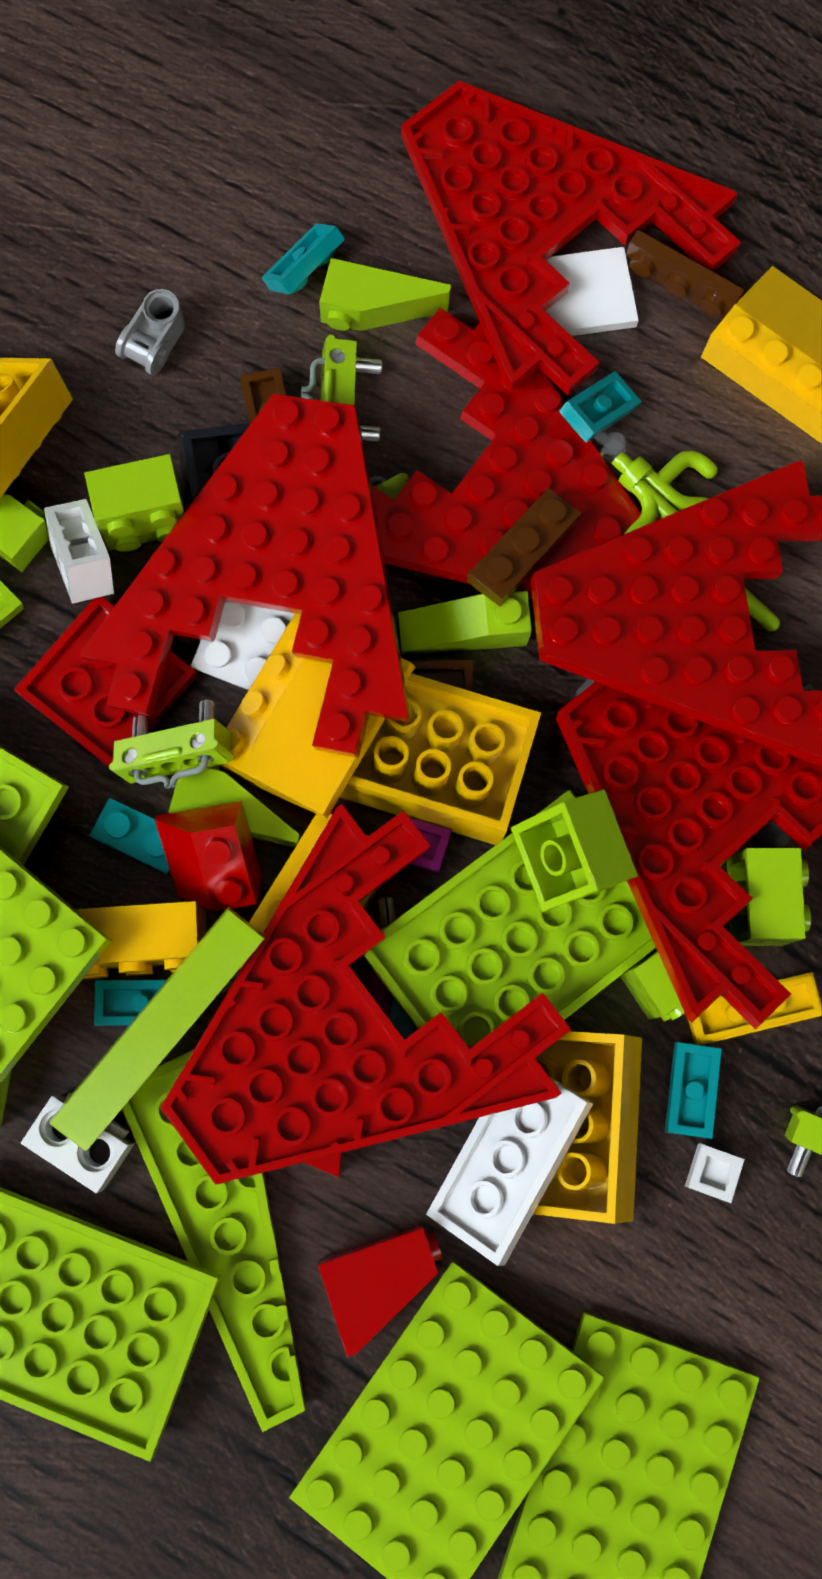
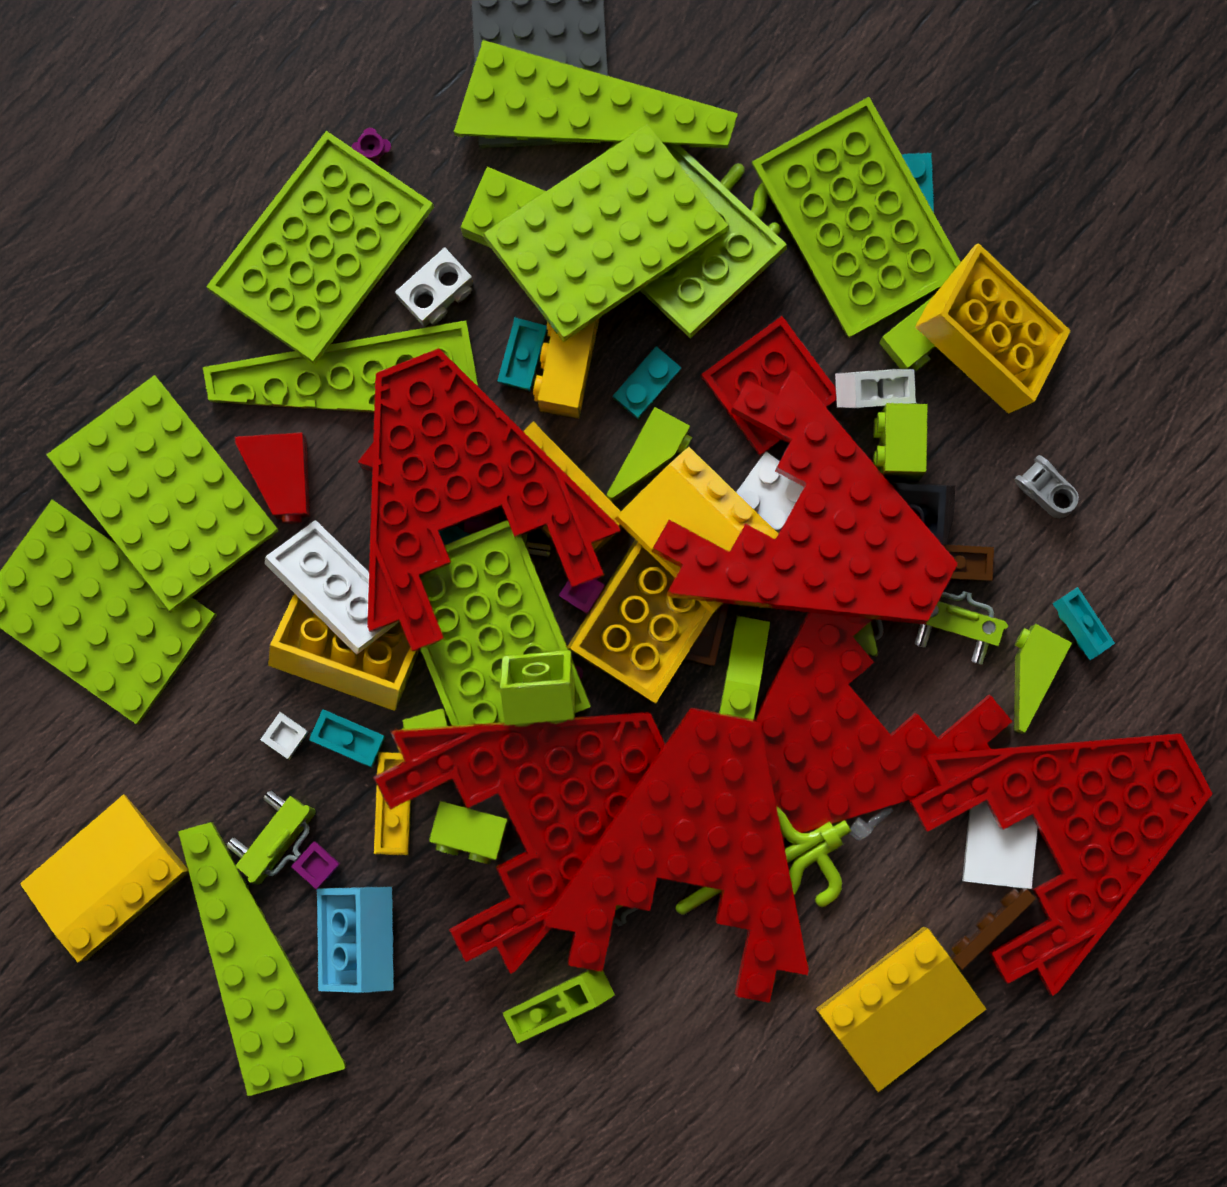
camera: 115 degrees right, 5 degrees up
(157, 1029) = (495, 360): lime tile -> none
(175, 751) = (698, 420): lime piece -> none
(211, 856) = (612, 431): red slope -> none
(523, 547) = (787, 725): reddish brown plate -> none
(600, 406) = (894, 825): teal plate -> none

